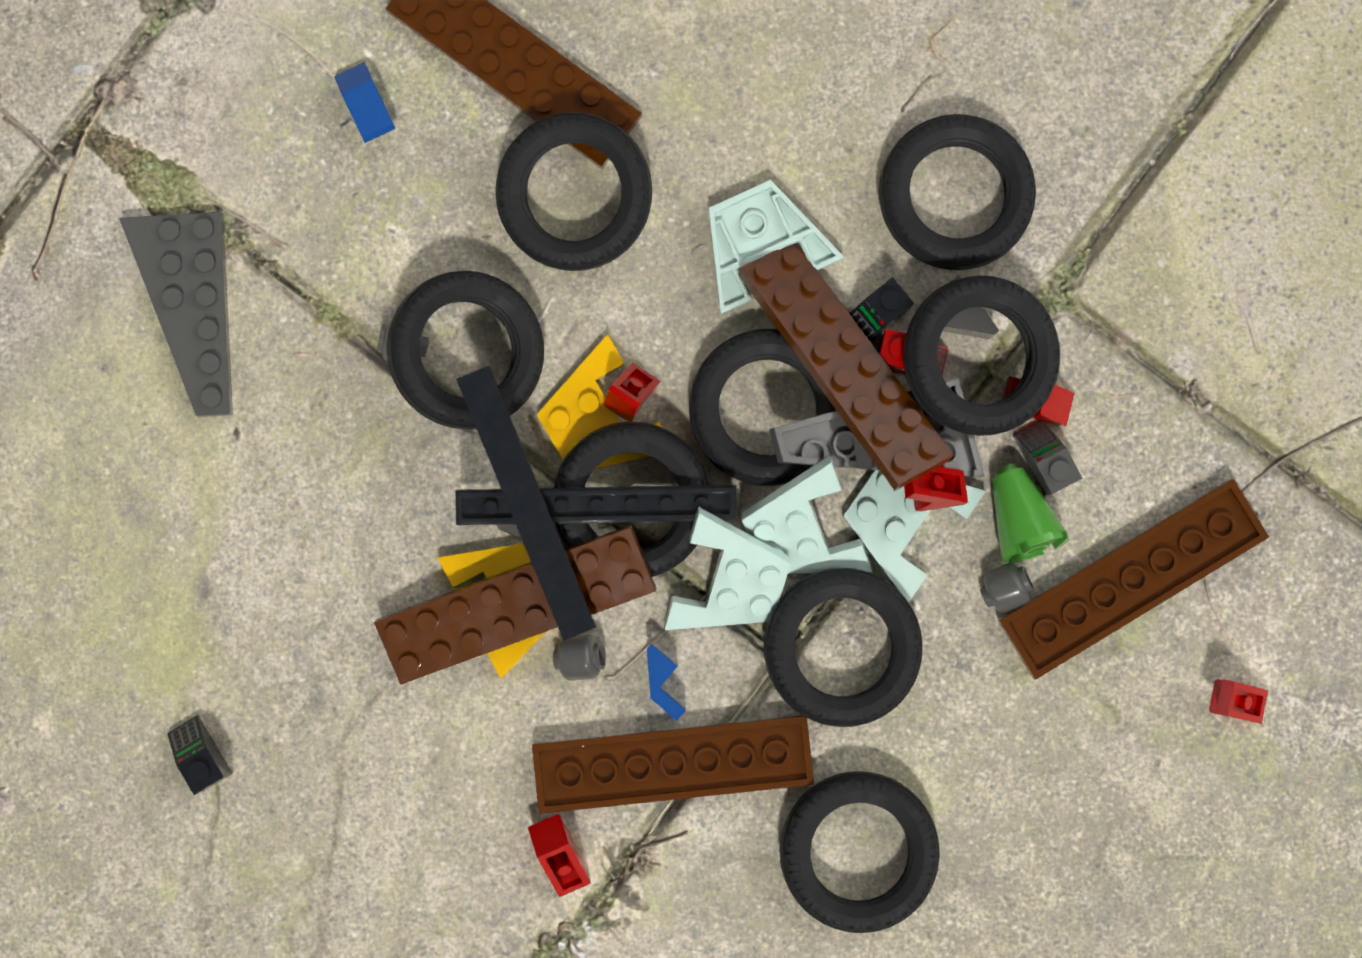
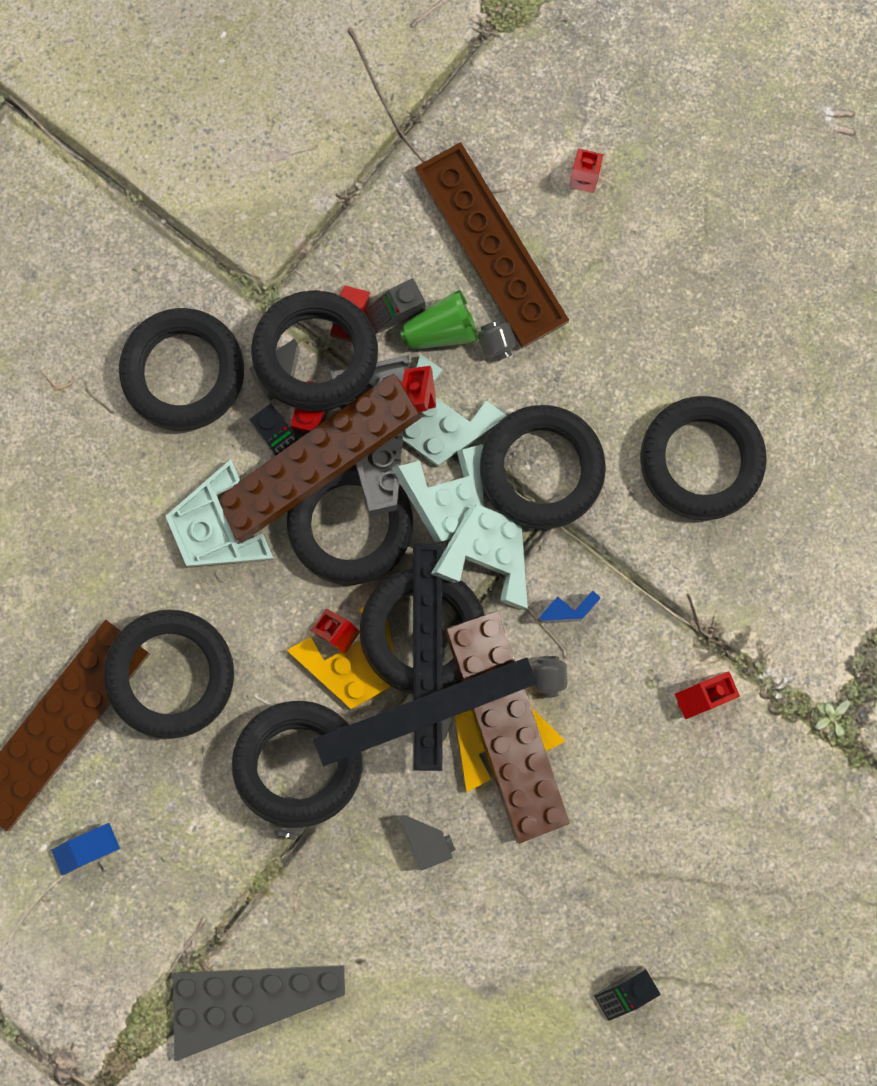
camera: 90 degrees left, 5 degrees down
(375, 510) = (427, 843): none -> dark grey slope
(672, 764) = (634, 604): reddish brown plate -> none

